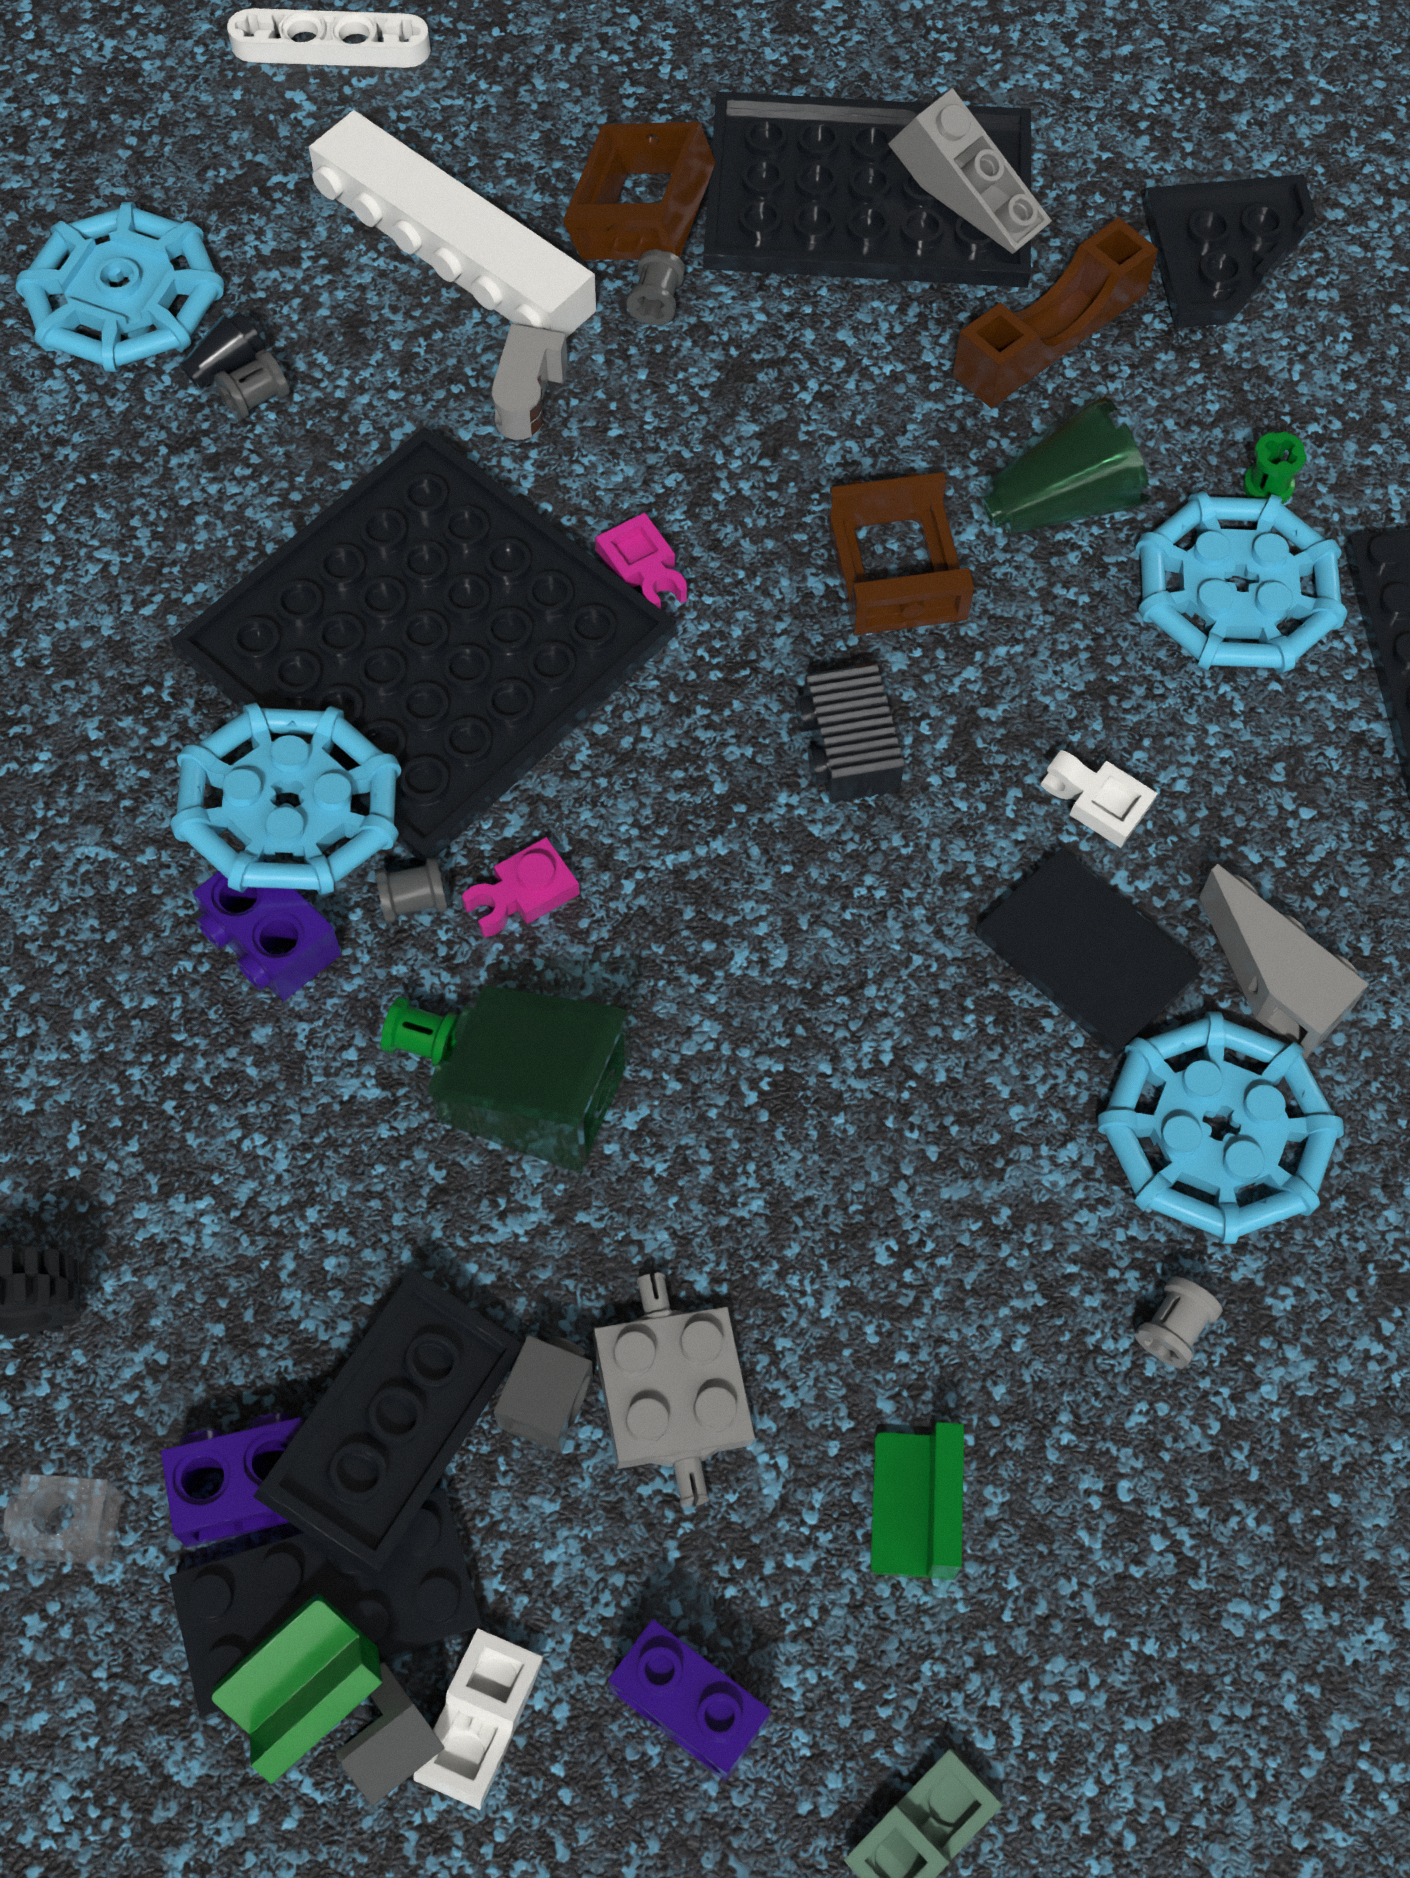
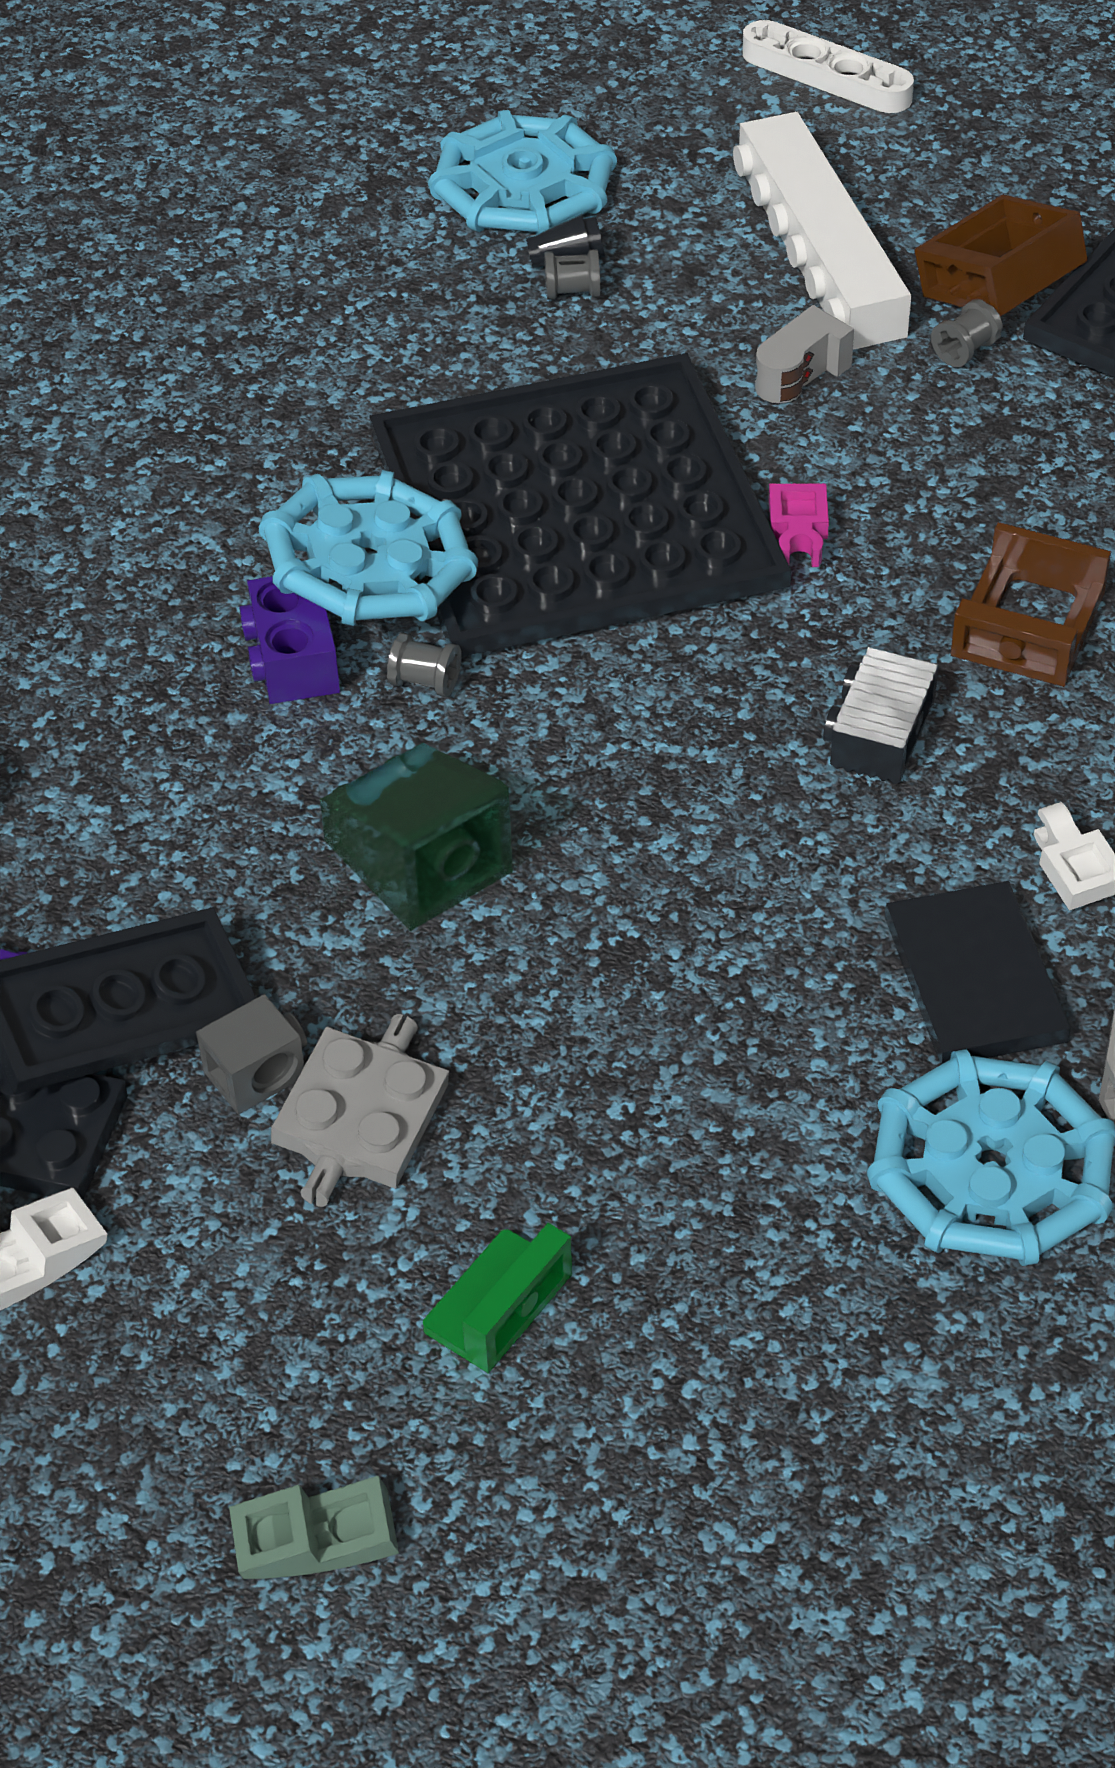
camera: 35 degrees right, 15 degrees down
(419, 1031) = (351, 761): green bush -> none
(527, 883) = (524, 708): dark pink plate -> none
(689, 1700) = (193, 1320): dark purple brick -> none
(1178, 1322) = (832, 1276): light grey bush -> none

